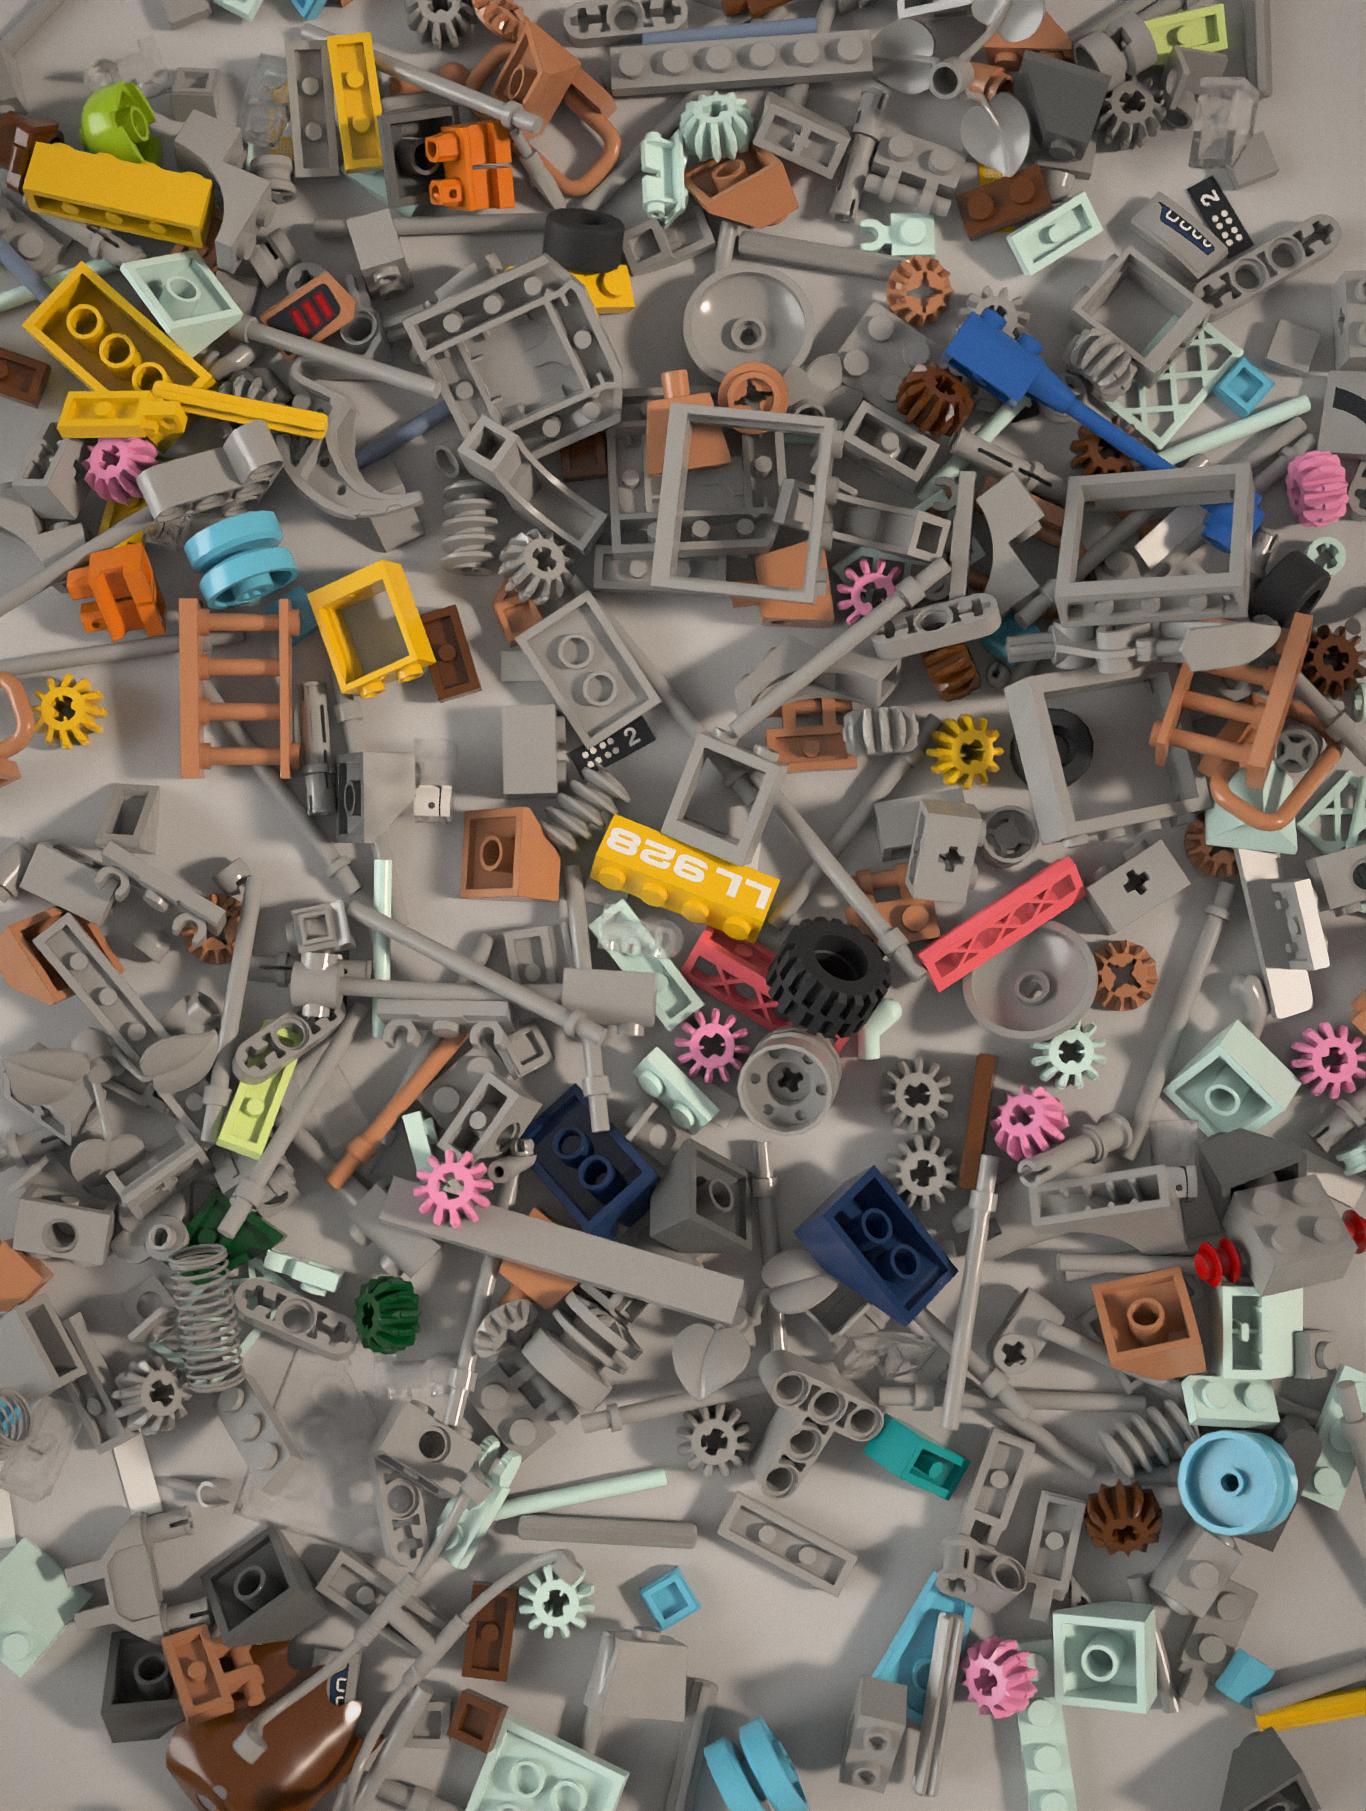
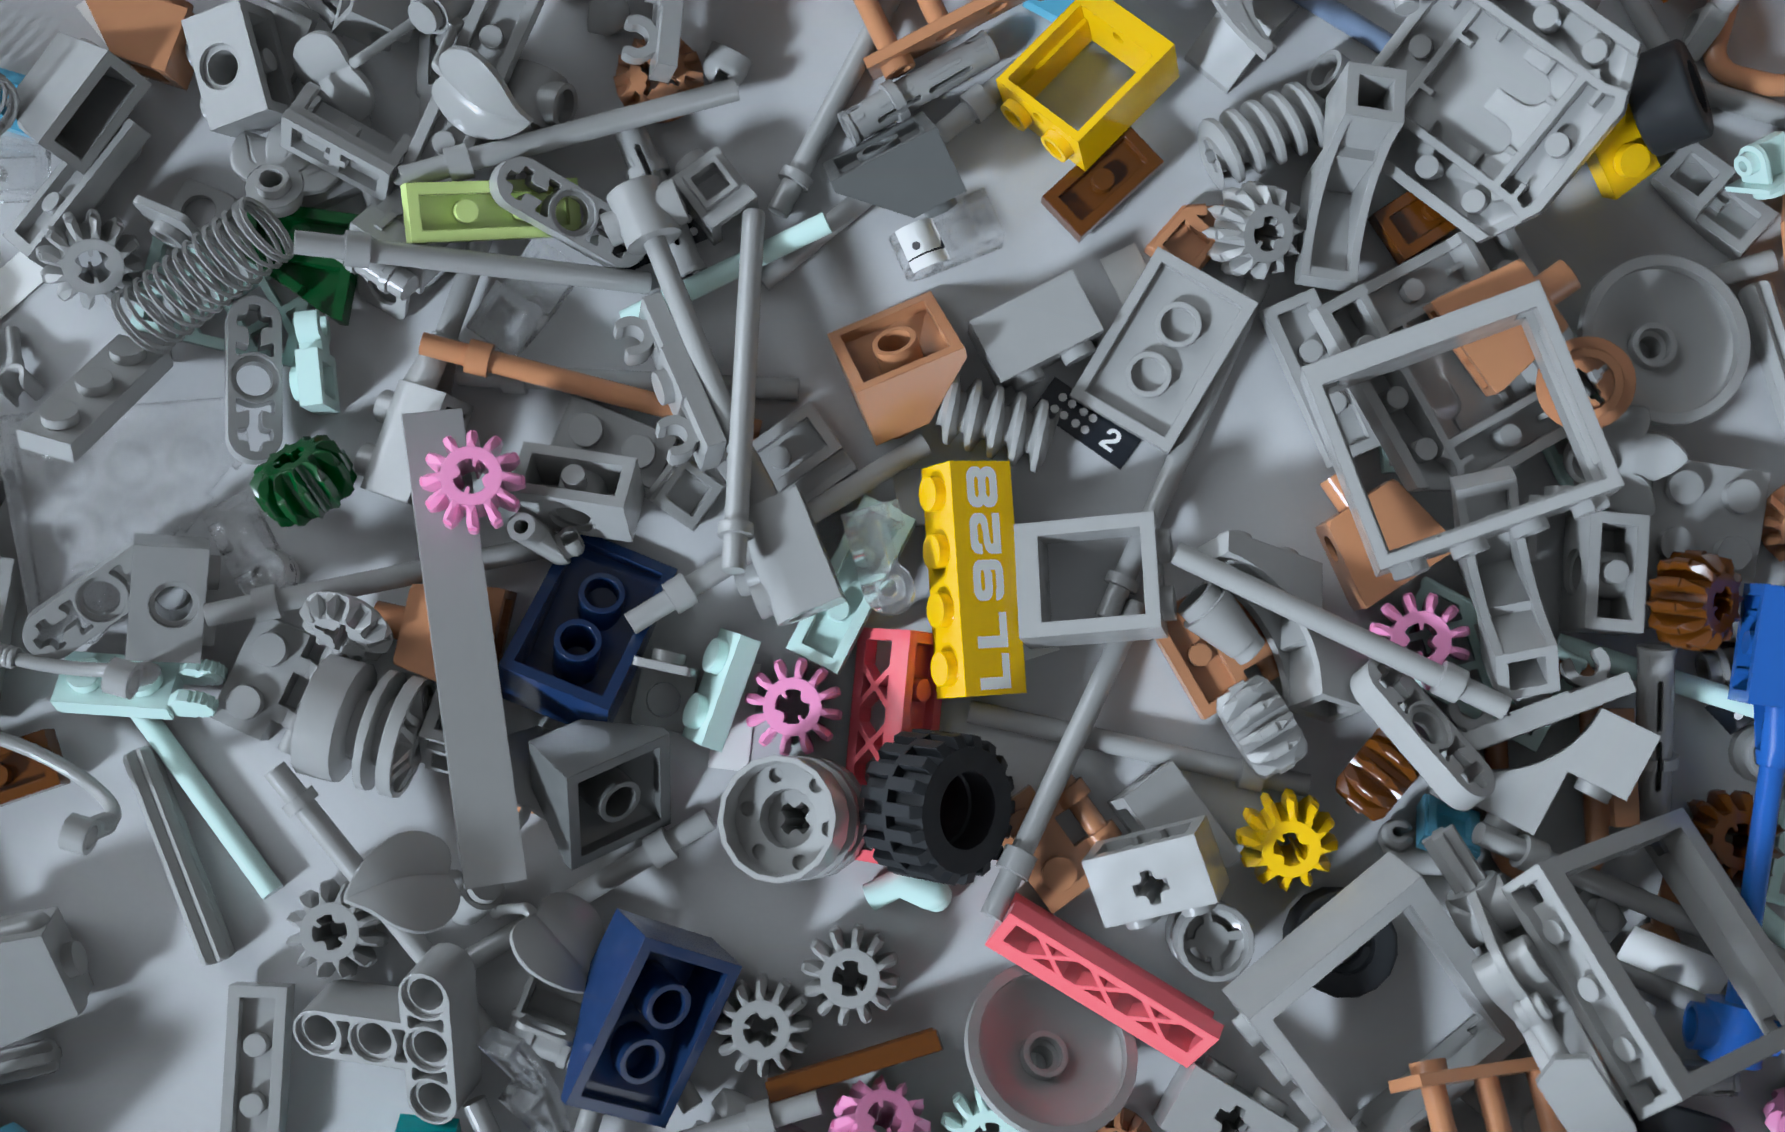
camera: 65 degrees right, 0 degrees up
(421, 1137) = (528, 422): light aqua plate -> none
(552, 1616) = (45, 830): light aqua gear -> none
(669, 1598) = (134, 964): medium azure tile -> none
(795, 723) = (1221, 622): none -> light grey cone

